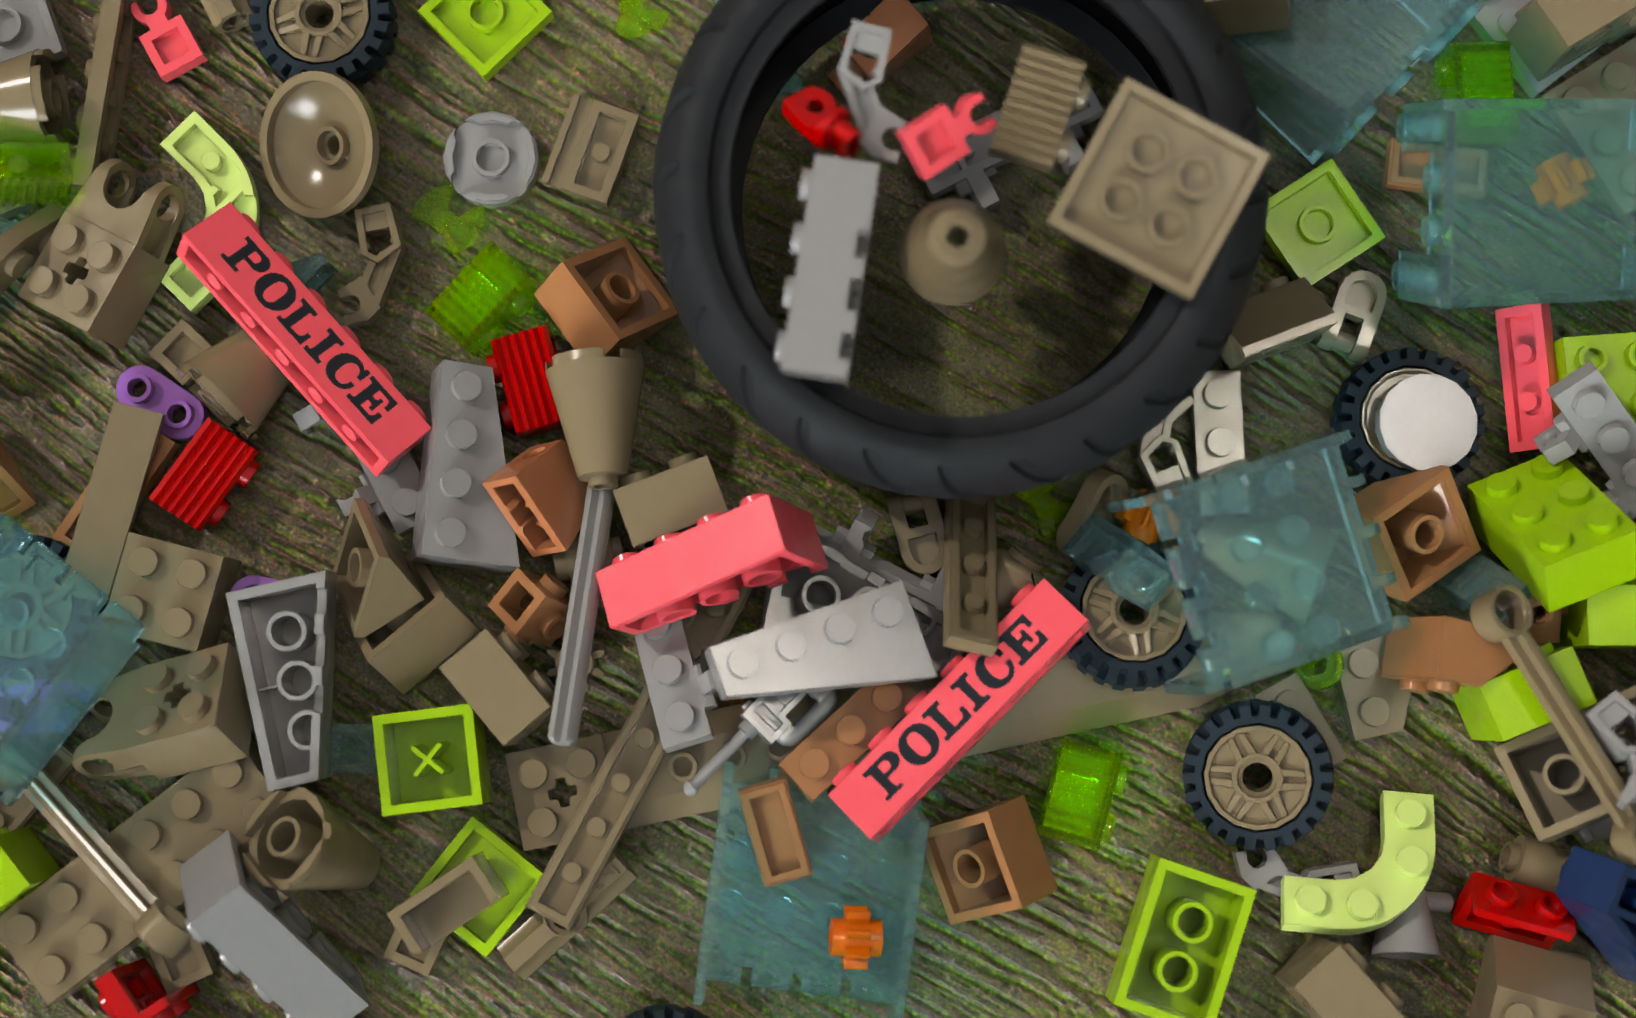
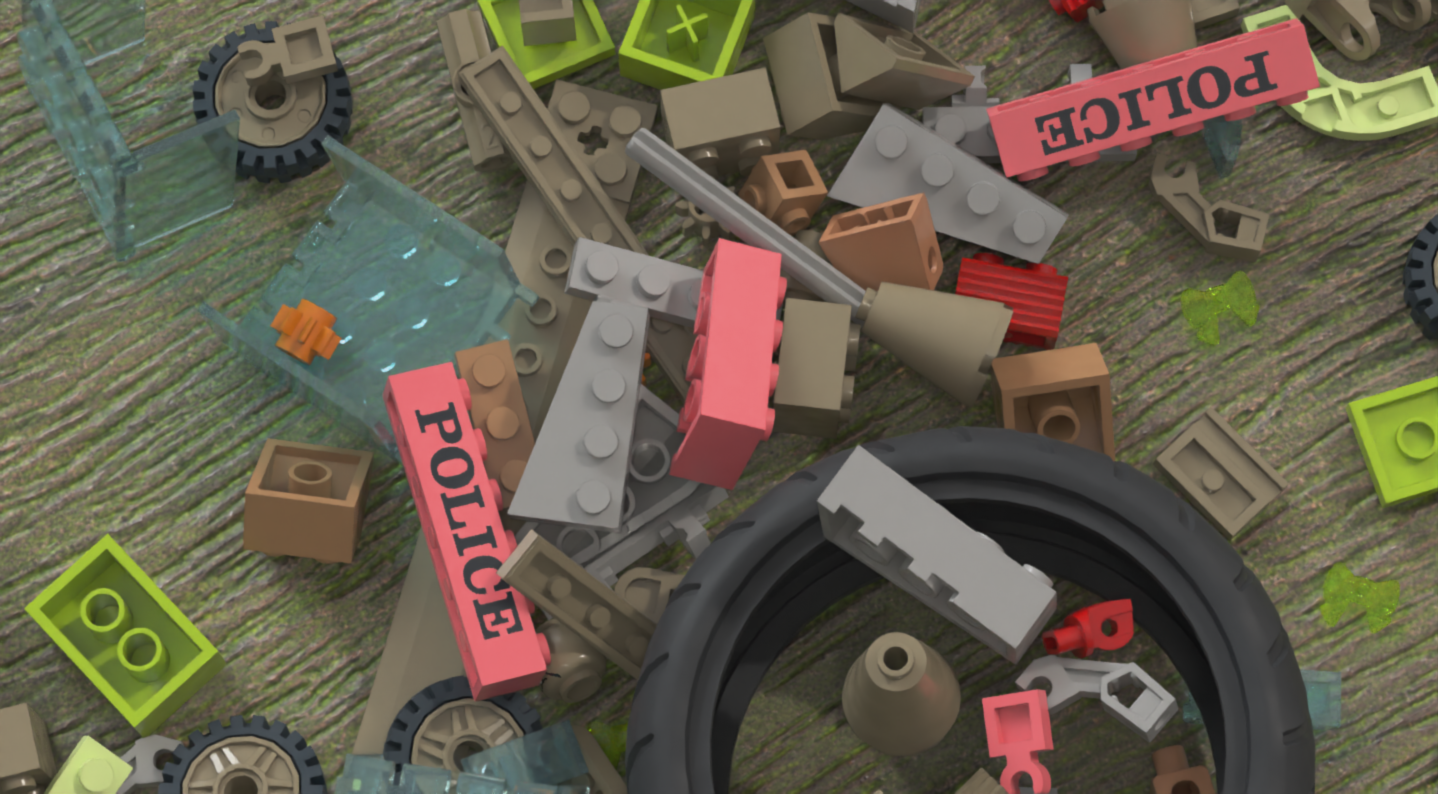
camera: 115 degrees right, 10 degrees down
(319, 144) = (1351, 209): dark tan dish -> none
(483, 299) = (1116, 295): clear neon green brick -> none
(492, 160) = (1260, 376): light grey tile -> none
(768, 720) = (548, 354): light grey piece -> none
(775, 831) = (446, 308): medium nougat tile -> none
(1082, 794) = (321, 622): clear neon green brick -> none

